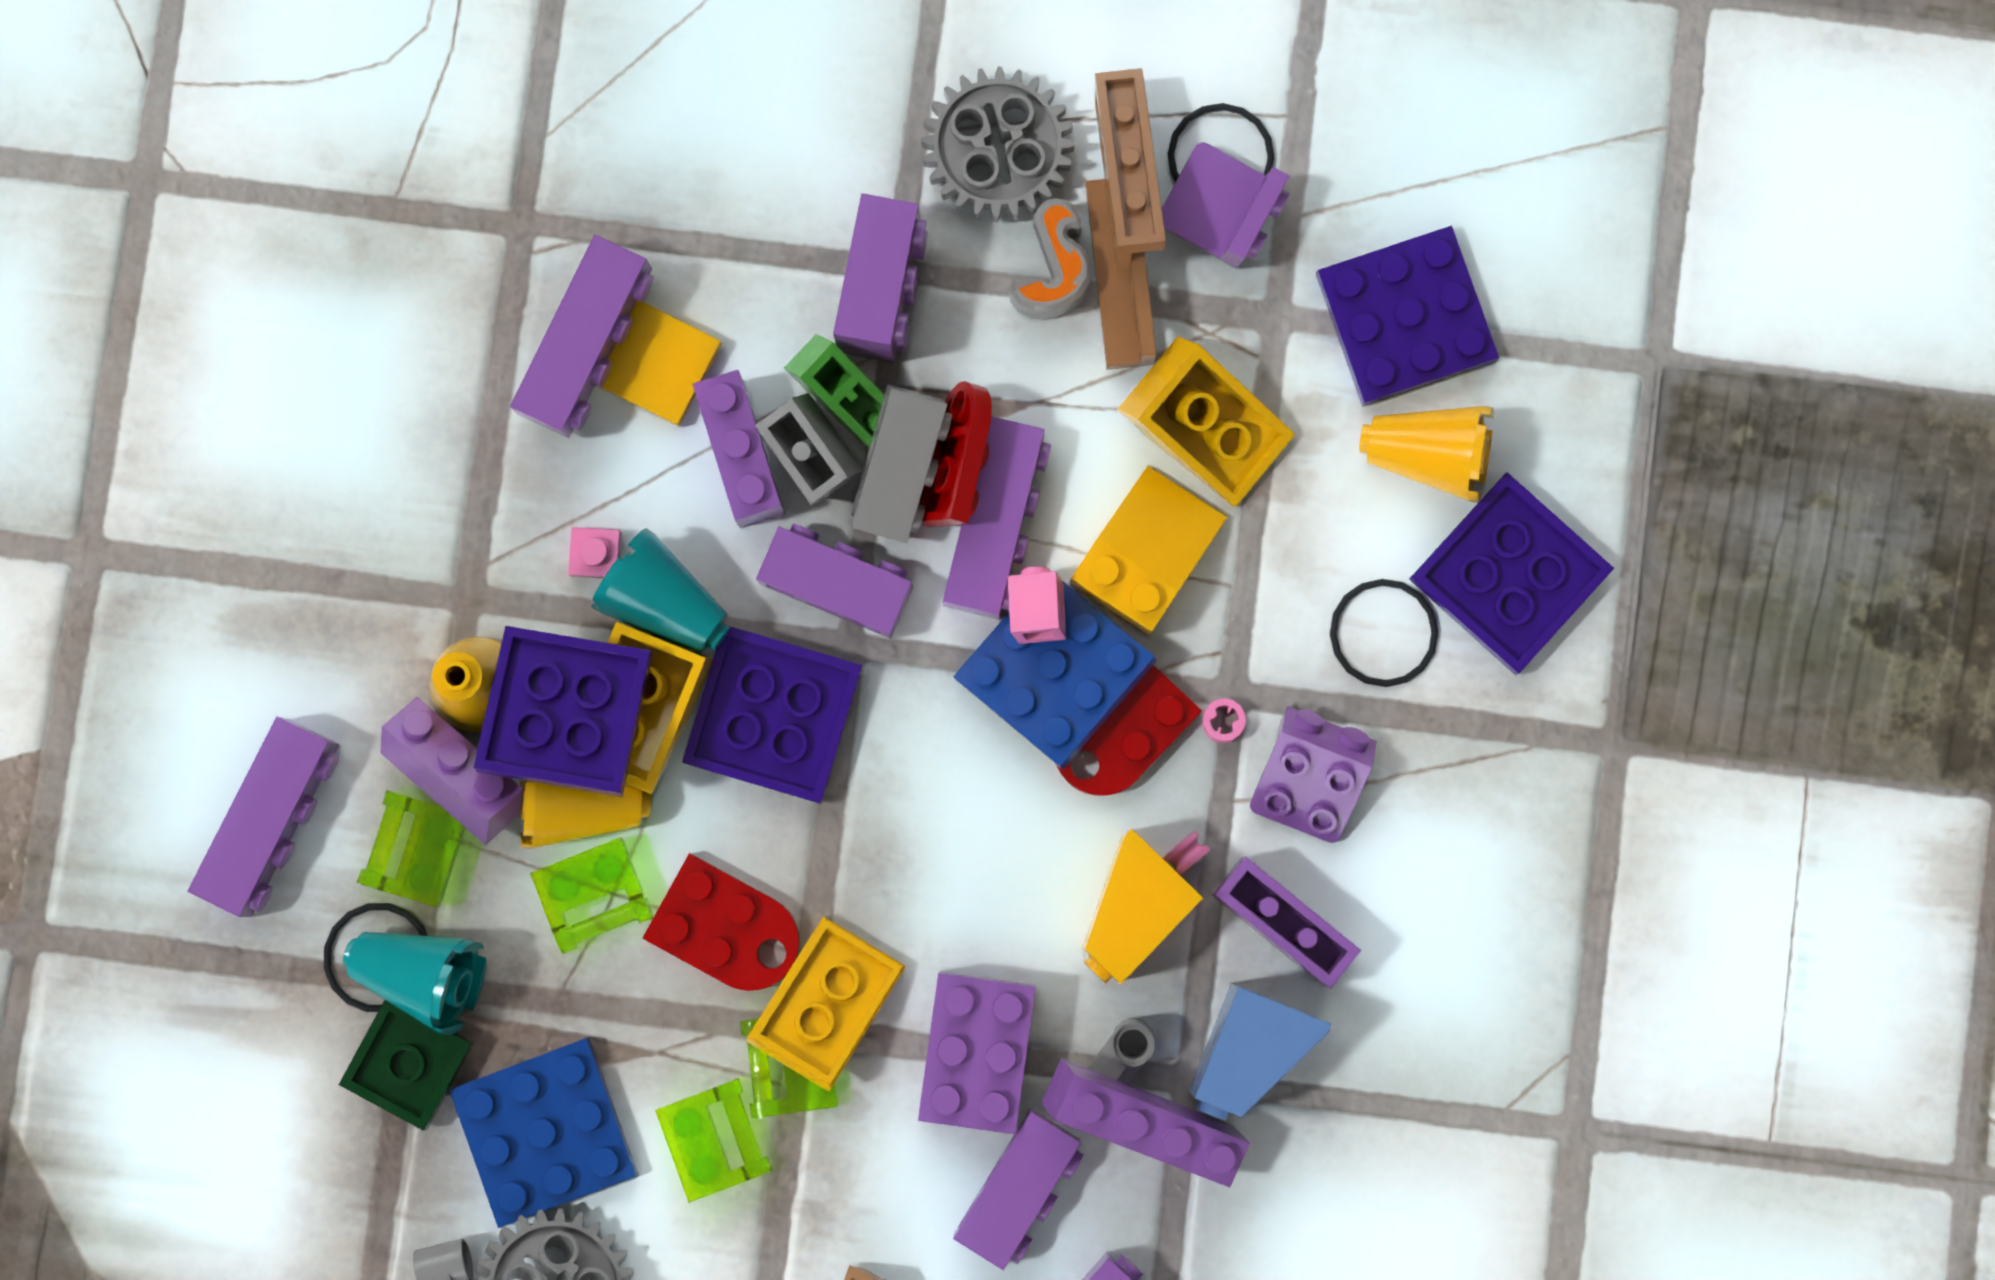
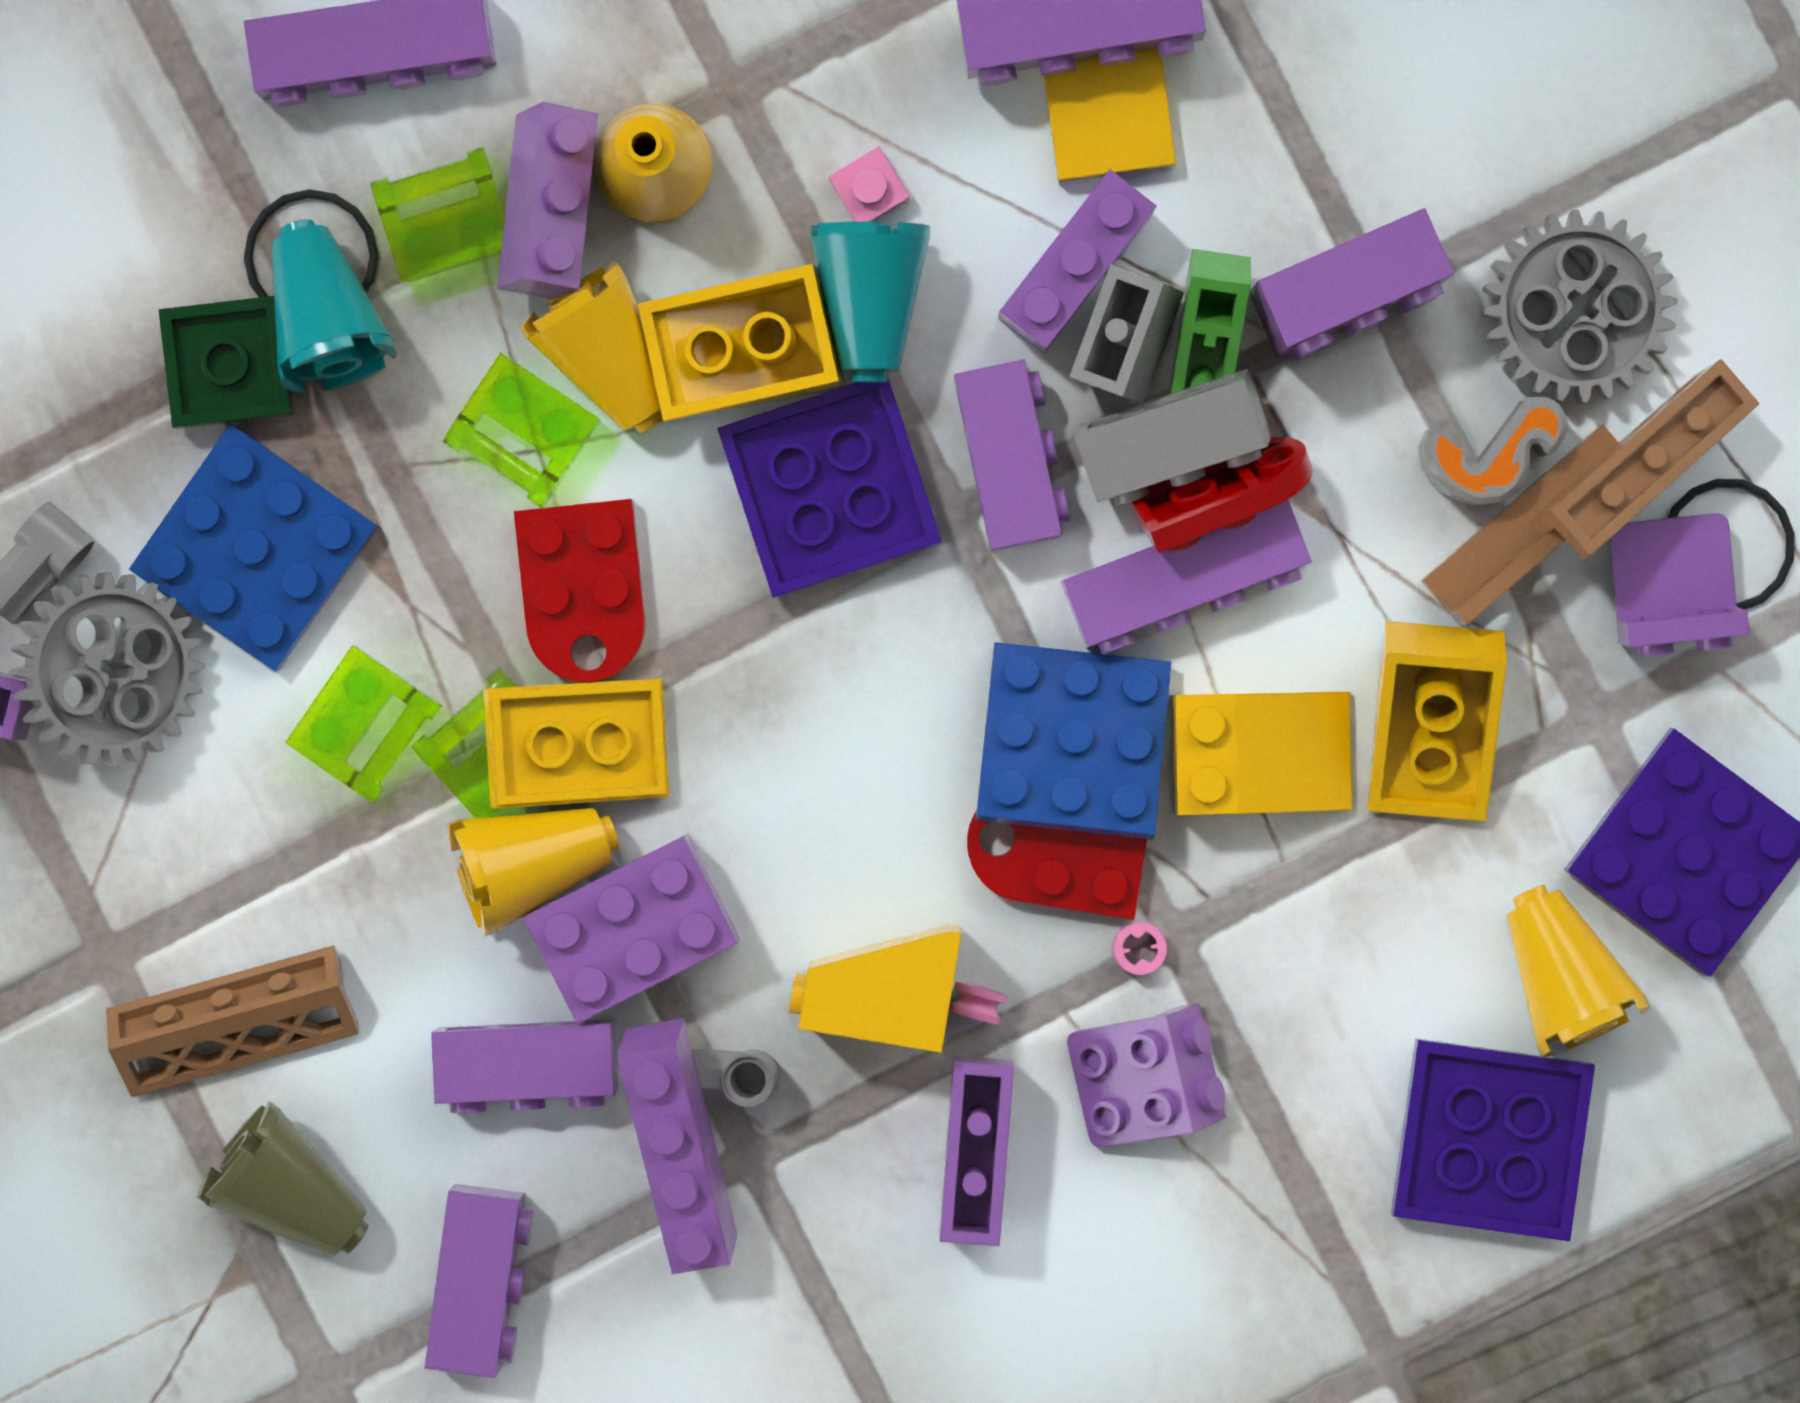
camera: 60 degrees right, 5 degrees up
(563, 711) = (684, 276): dark purple plate -> none
(881, 1092) = (527, 860): none -> yellow cone
(1036, 606) = (1123, 680): bright pink brick -> none
(1251, 1051) = (822, 1203): medium blue slope -> none
(1394, 584) = (1404, 1046): black piece -> none

